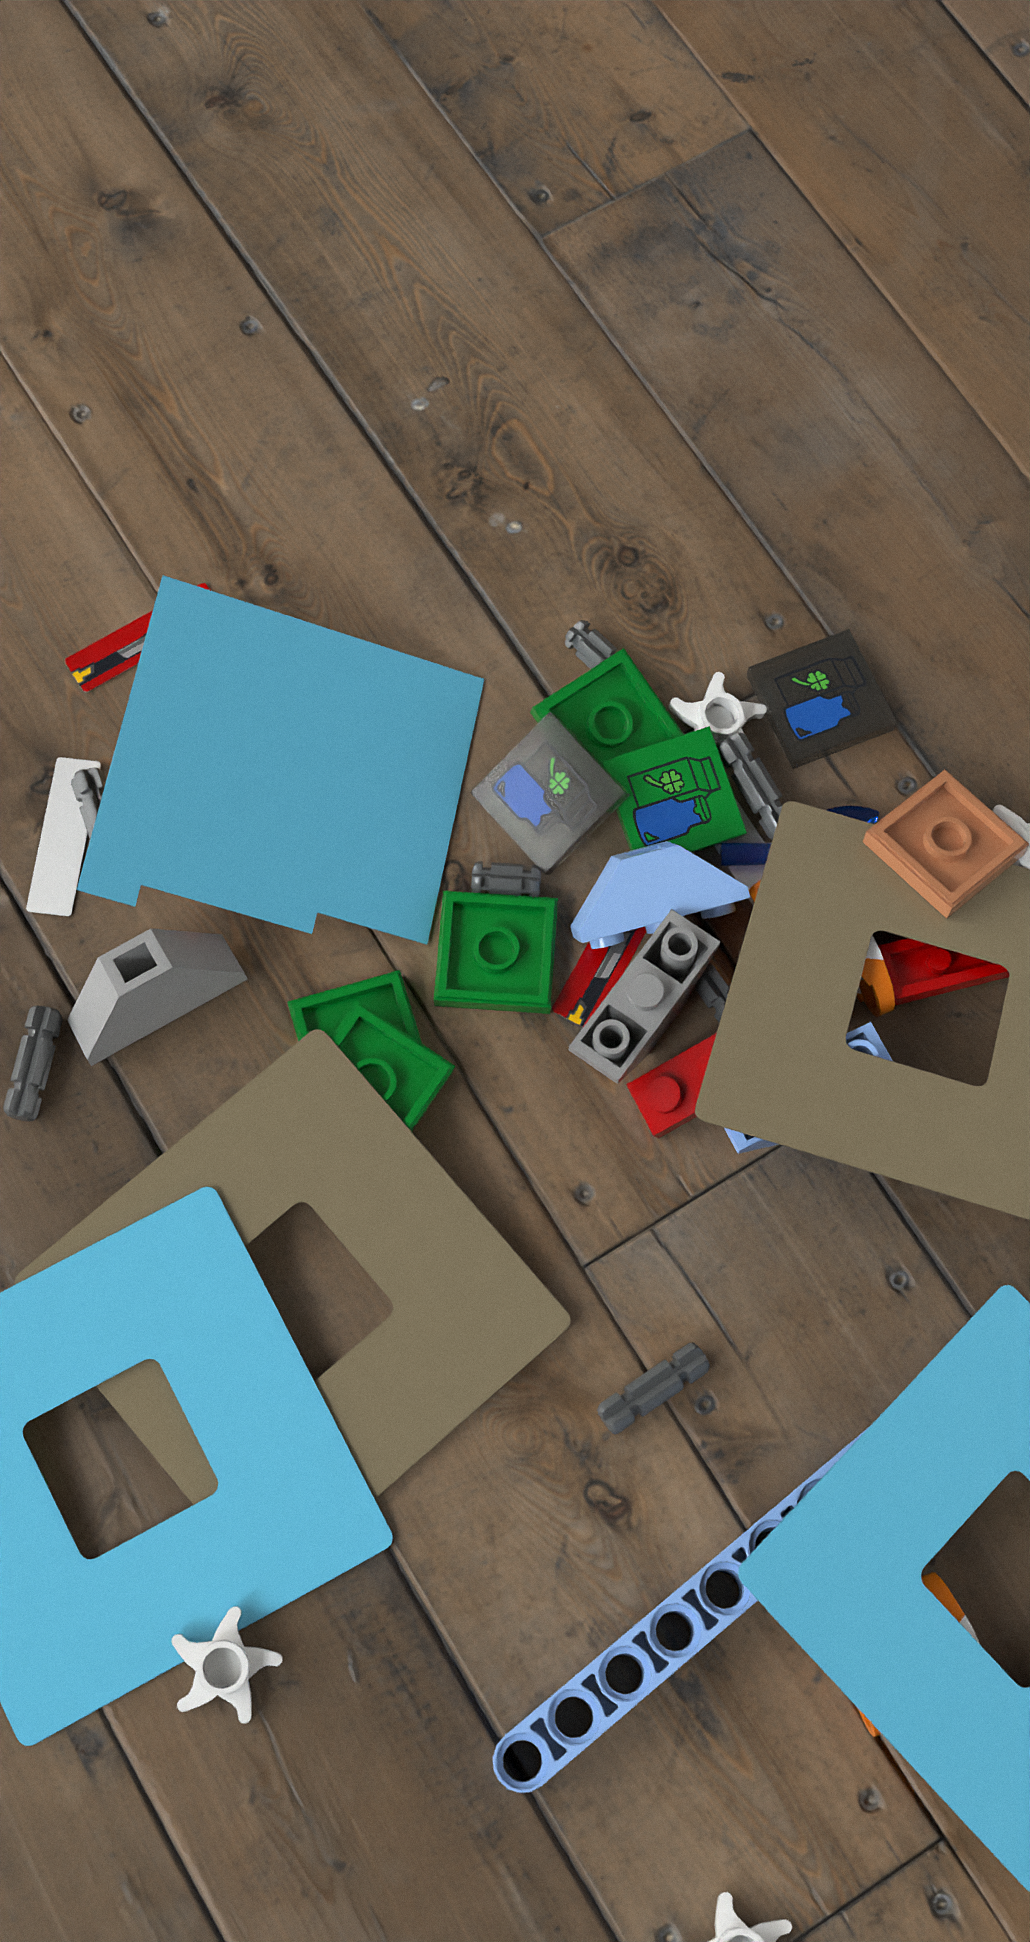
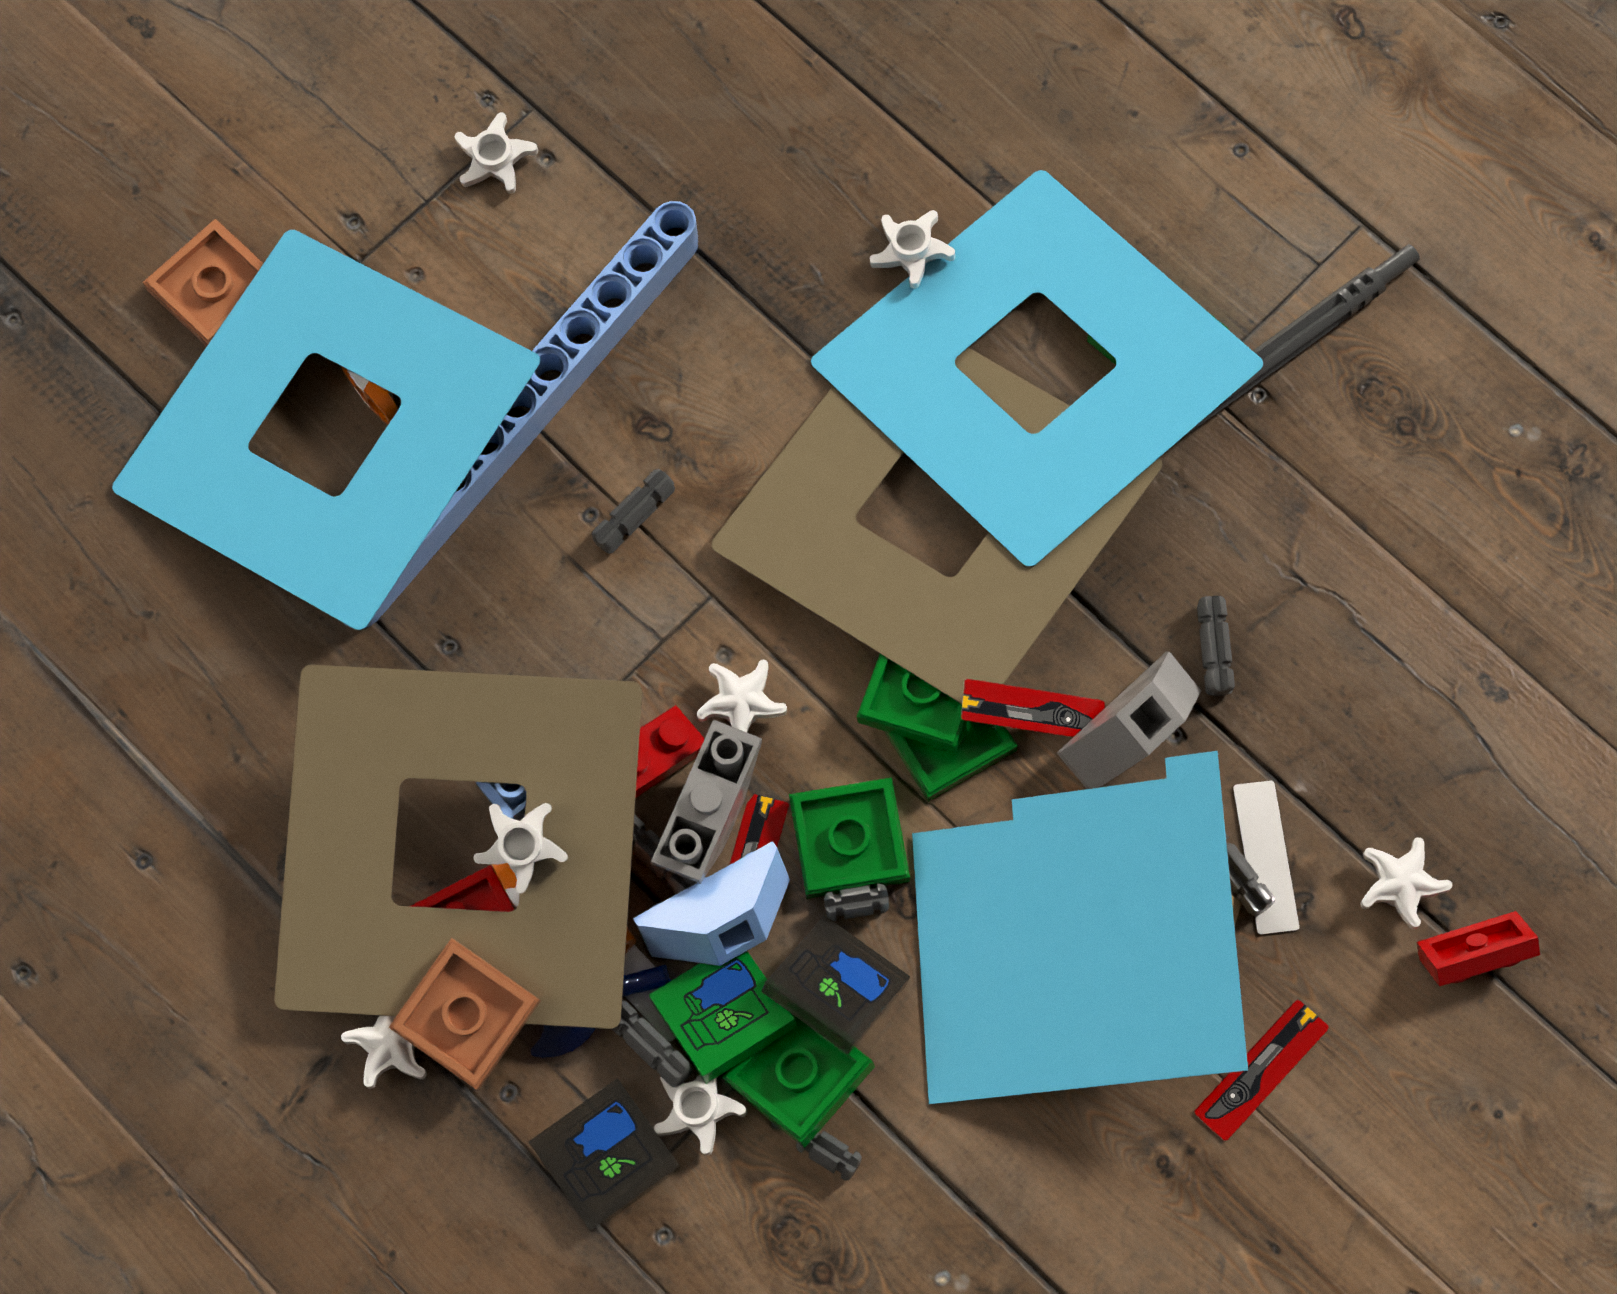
camera: 170 degrees right, 0 degrees up
(261, 1027) = (1027, 708): none -> red sticker
(578, 1124) = (741, 698): none -> white animal
(861, 980) = (520, 844): none -> white animal

